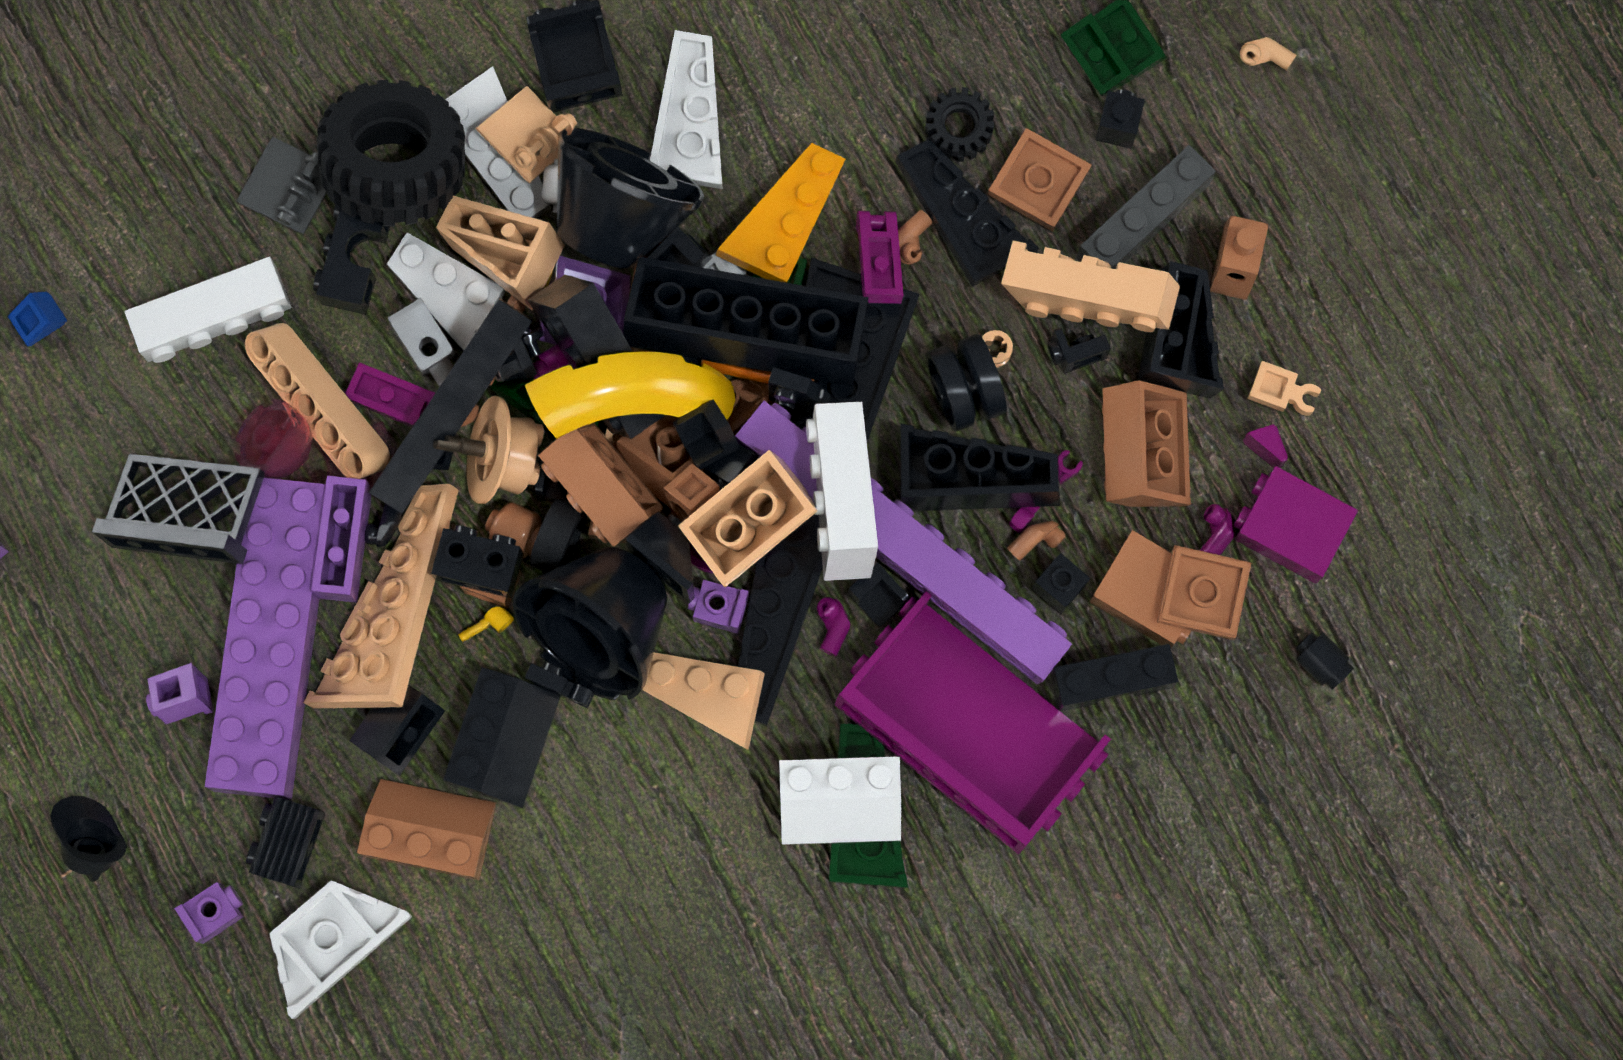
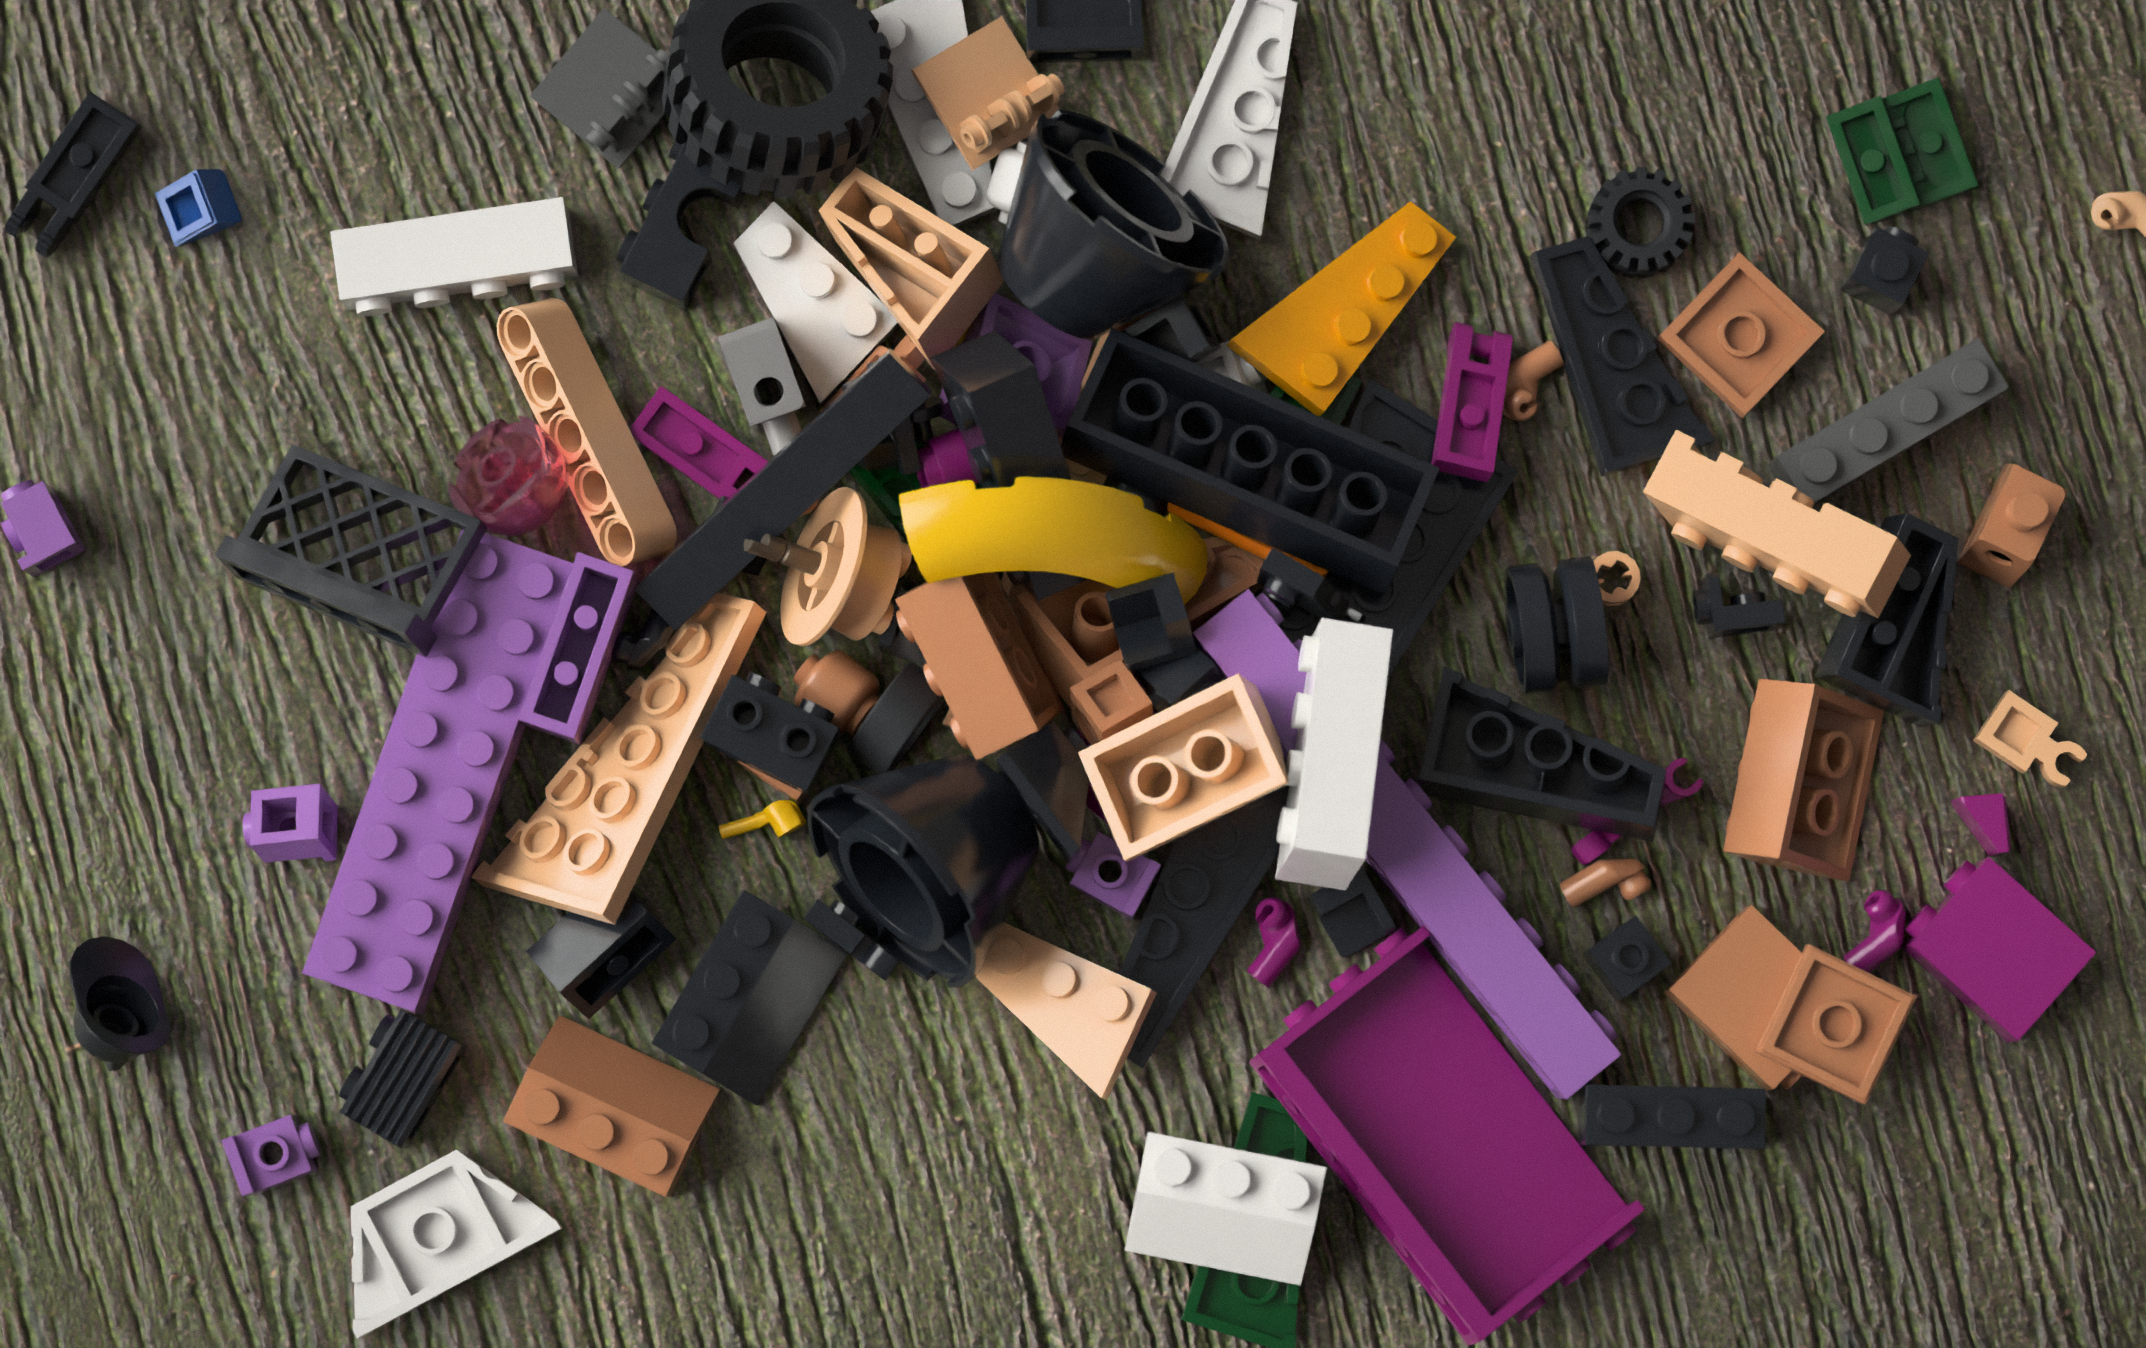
camera: 15 degrees right, 5 degrees up
(1323, 659) = (1990, 1161): black brick -> none

